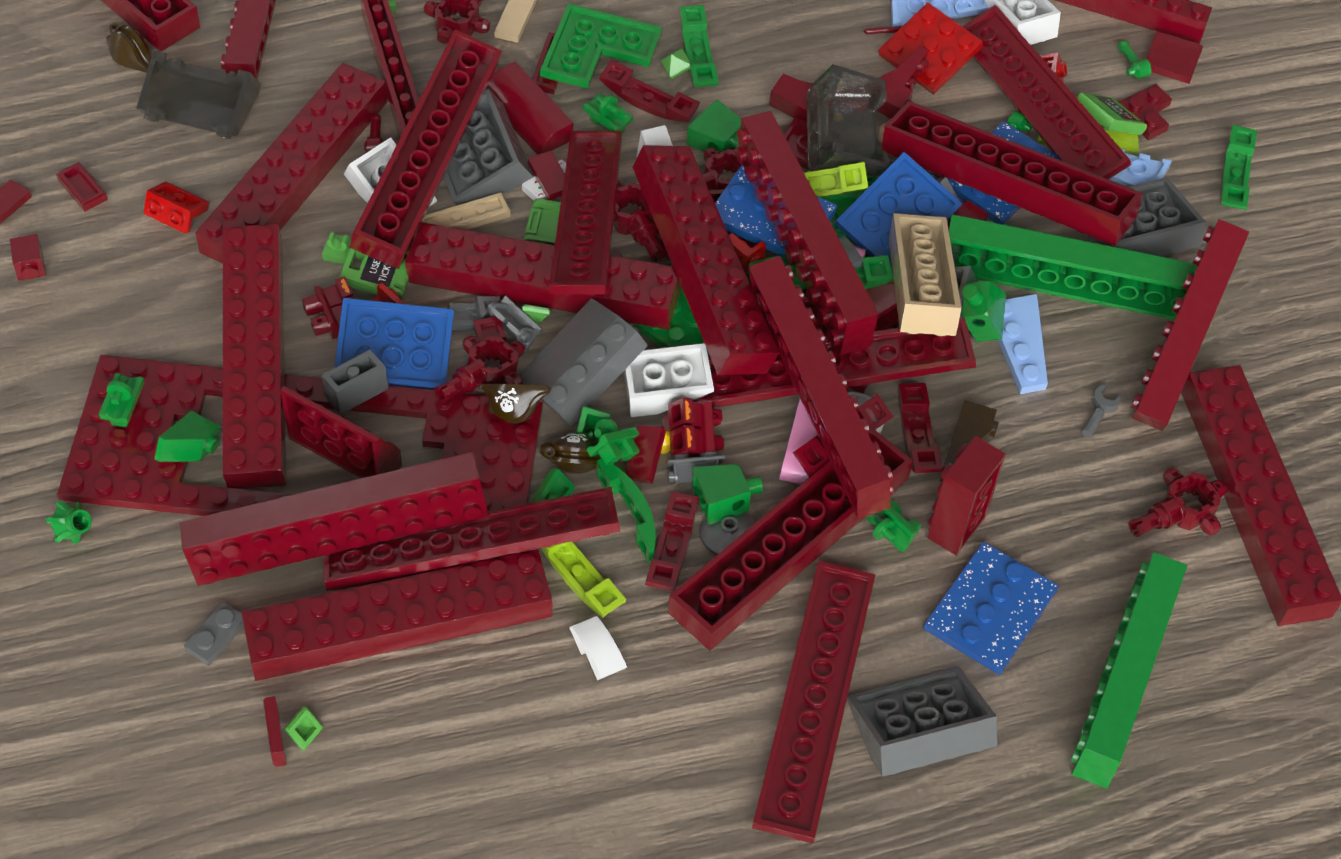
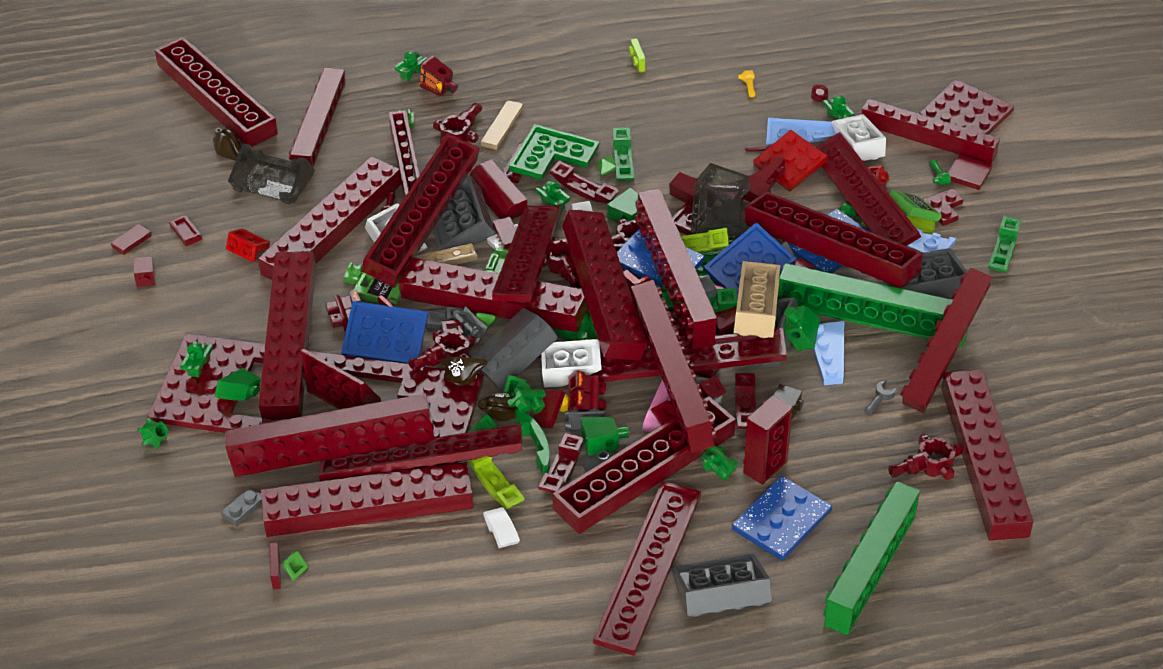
camera: 10 degrees right, 10 degrees down
(355, 381) = (354, 353): dark grey brick -> none

